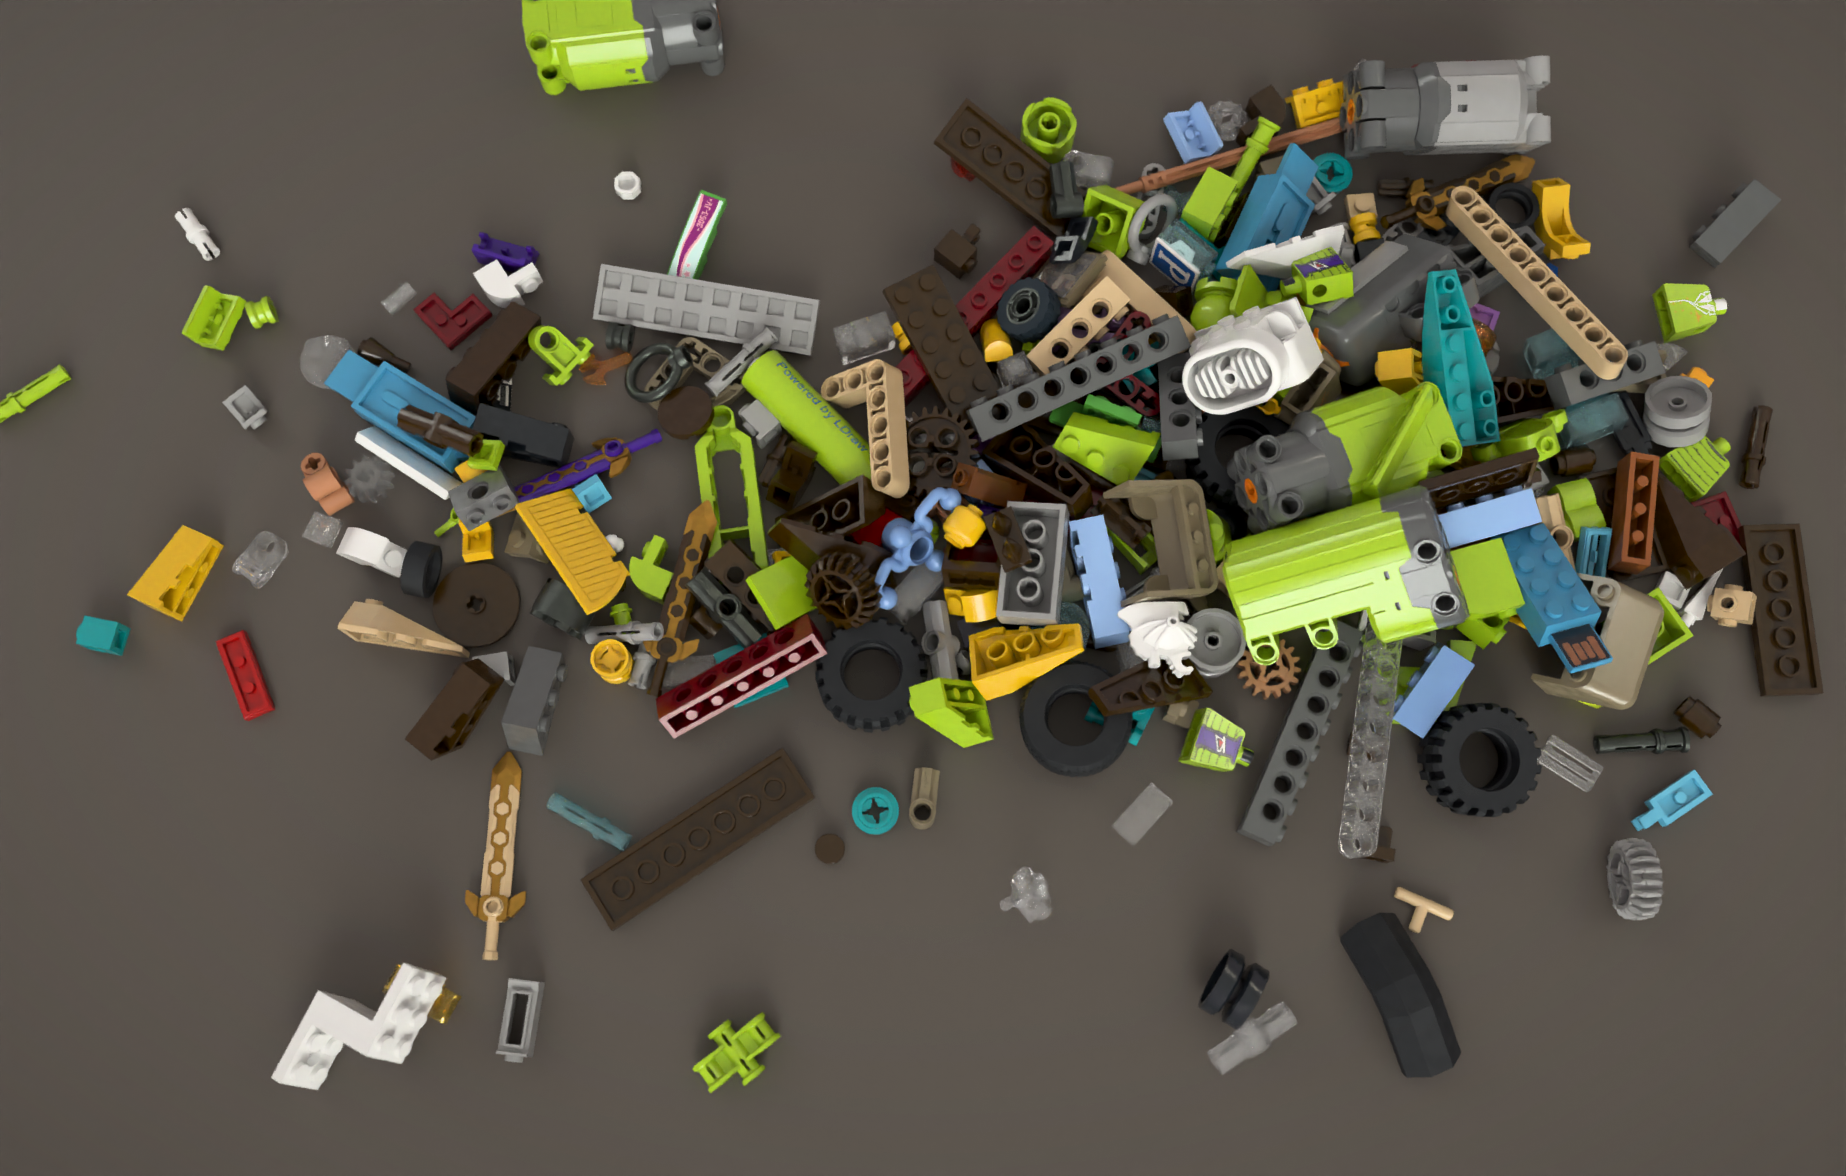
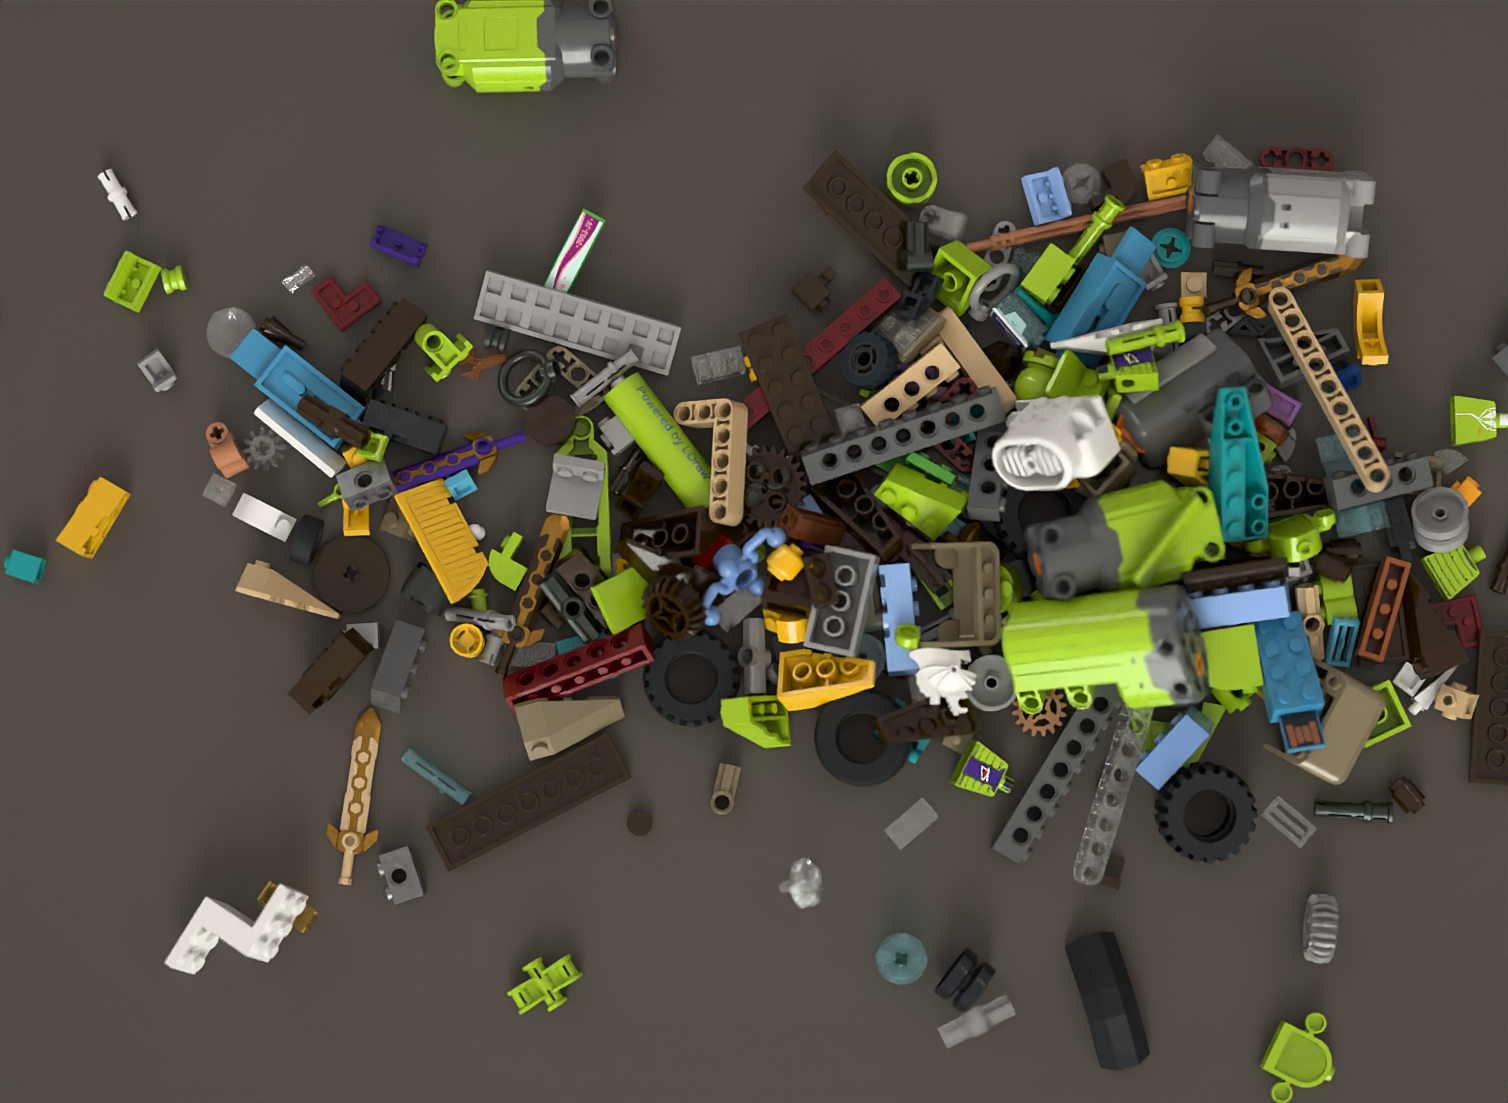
camera: 10 degrees right, 10 degrees up
(245, 675) = (146, 614): red tile -> none
(258, 559) = (164, 514): clear piece -> none
(503, 288) = (393, 281): white brick -> none
(535, 990) = (362, 963): light grey window -> none
(570, 952) = (412, 886): none -> flat silver brick
(627, 185) = (515, 189): white tile -> none
(719, 472) = (575, 486): none -> light grey bracket
(725, 742) = (555, 725): none -> dark tan wedge
(884, 800) = (691, 803): teal gear -> none
(995, 341) = (835, 385): yellow brick -> none
(1113, 594) = (907, 636): none -> lime tile
(1171, 971) = (901, 973): none -> clear light blue brick
(1342, 241) = (1156, 336): none -> lime pin
(1422, 906) = (1139, 929): tan piece -> none
(1520, 194) = (1344, 290): black tyre -> none
(1570, 472) = (1332, 566): none -> dark brown brick
(1635, 1036) = (1298, 1057): none -> lime piece
(1673, 801) = (1371, 865): medium azure plate -> none

